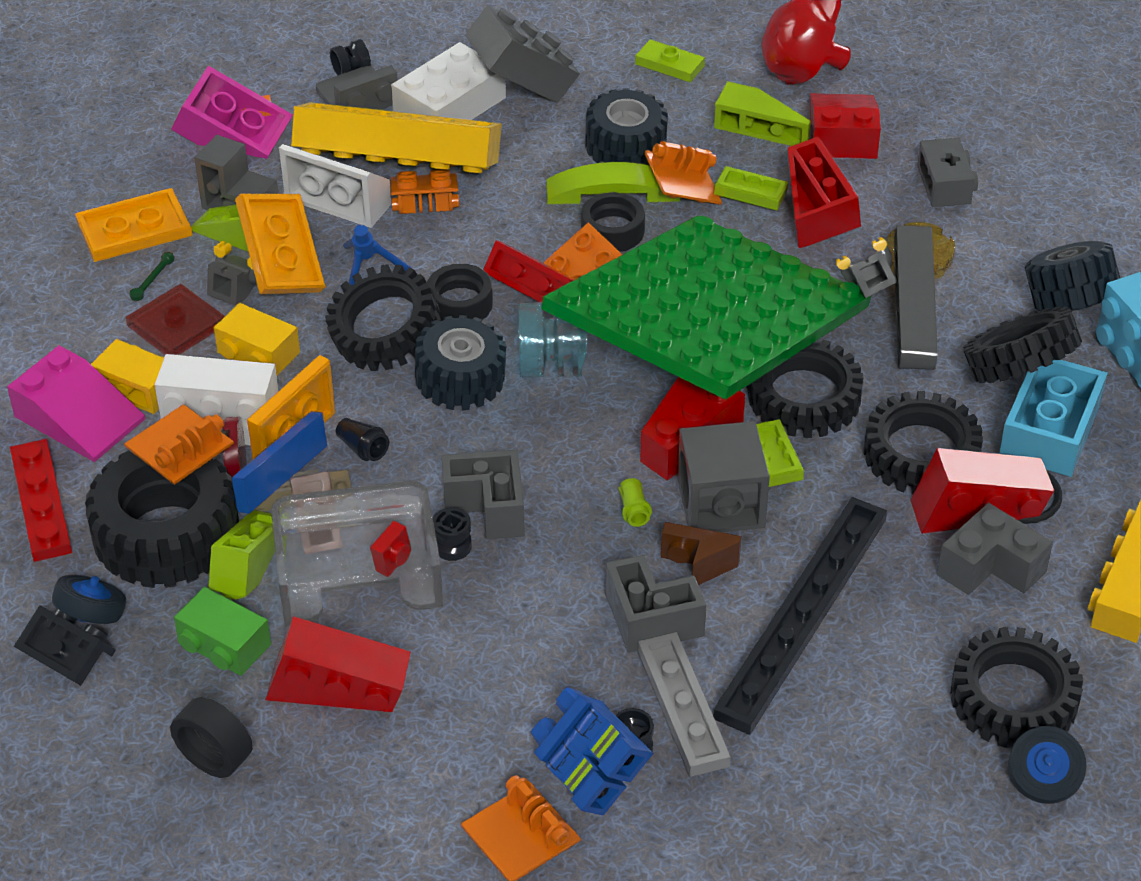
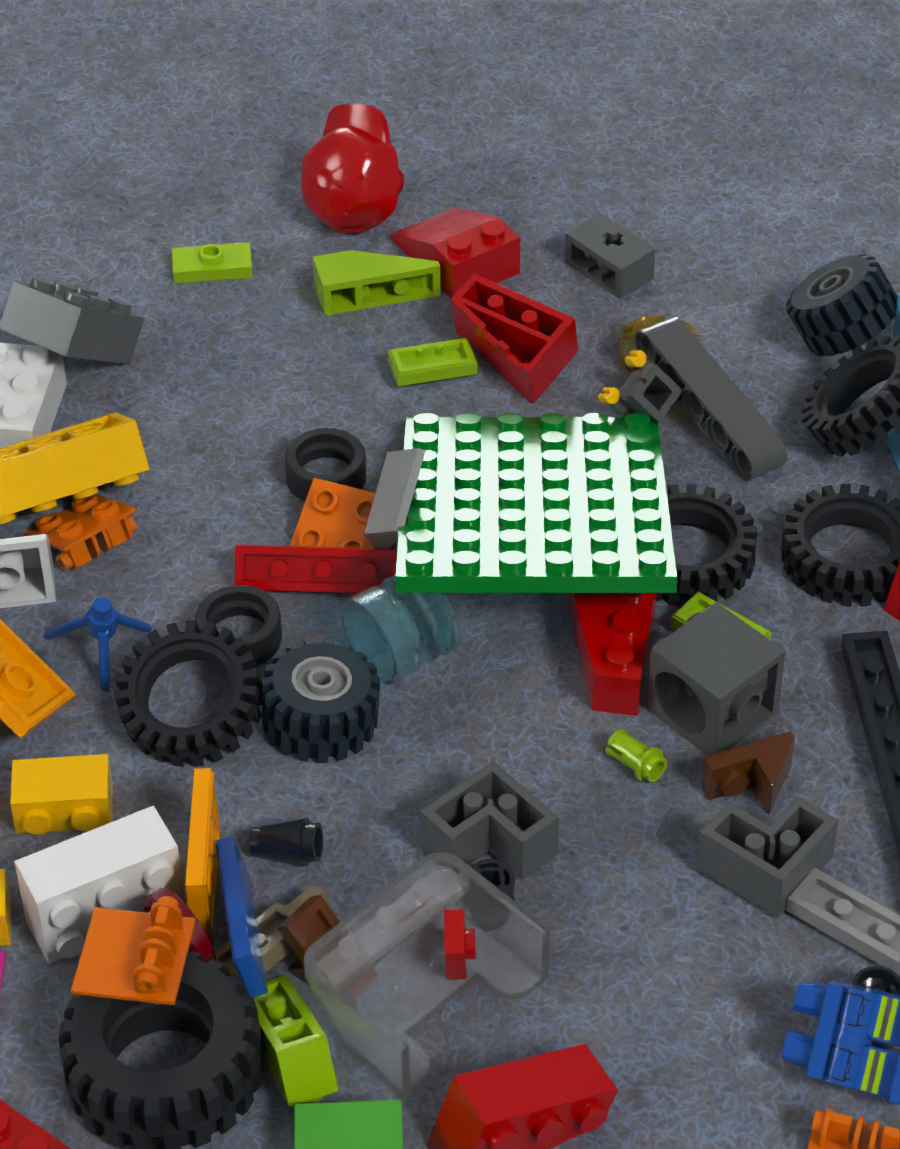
camera: 35 degrees left, 0 degrees up
(604, 178) = (276, 421): lime slope -> none
(622, 241) = (393, 496): none -> light grey slope
(624, 126) = (248, 357): black wheel -> none
(683, 171) = (349, 375): orange hinge -> none

